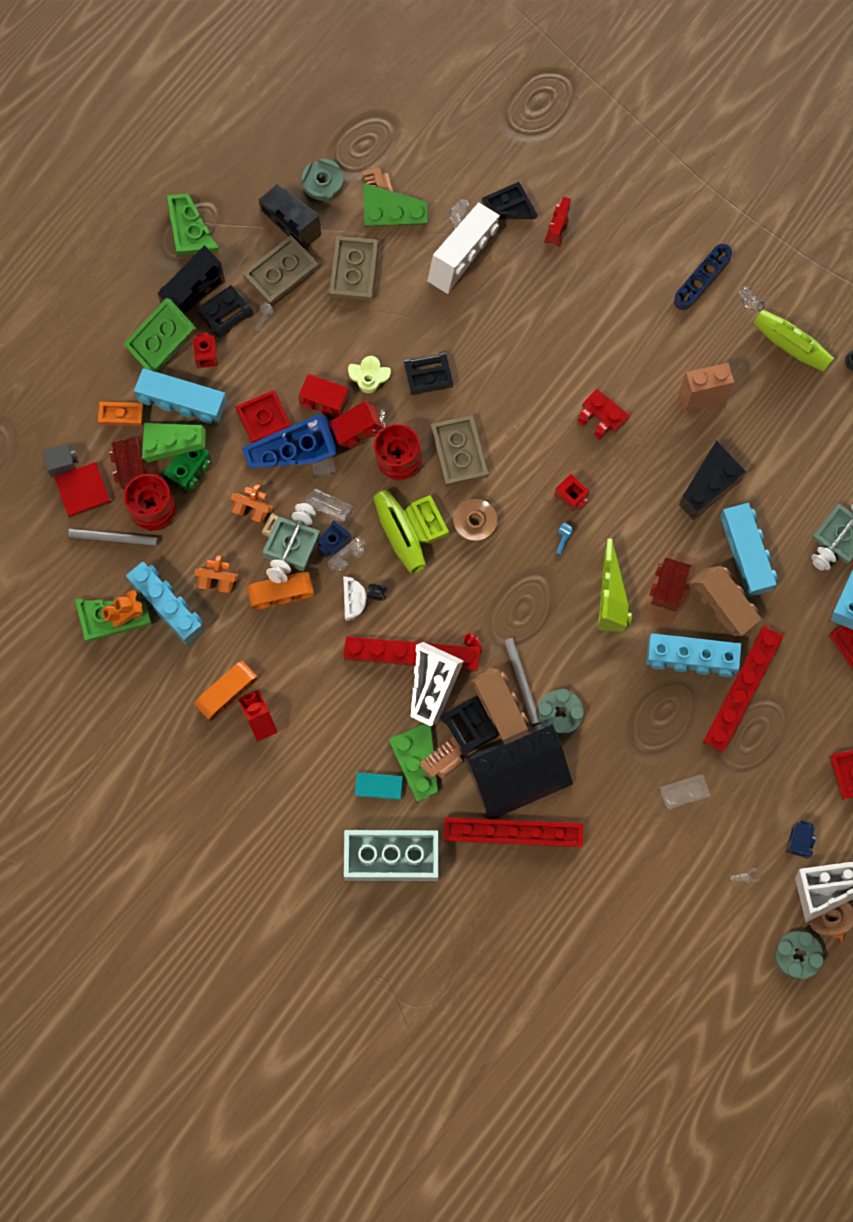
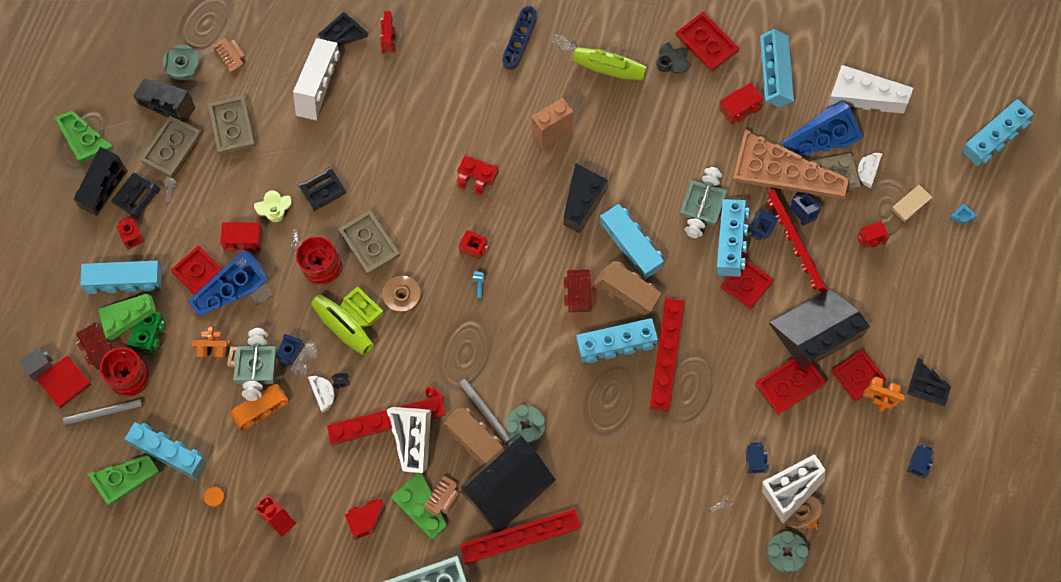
camera: 15 degrees left, 5 degrees down
(120, 414) = (75, 308): orange plate -> none
(123, 609) = (131, 467): orange hips -> none
(160, 336) = (87, 233): bright green plate -> none
(200, 672) = (214, 497): none -> orange tile
(226, 579) = (192, 417): orange hips -> none
(226, 690) = (241, 505): orange beam -> none
(330, 505) = (276, 323): clear plate -> none
(352, 754) = (364, 520): none -> red slope
(356, 425) = (276, 250): red brick -> none
(378, 786) = (396, 538): teal tile -> none
(392, 208) = (246, 67): bright green wing -> none
(458, 212) = (302, 51): clear arm -> none
(475, 722) = (456, 456): black plate -> none
(613, 600) = (537, 320): lime wedge -> none
(684, 792) = (648, 454): clear plate -> none

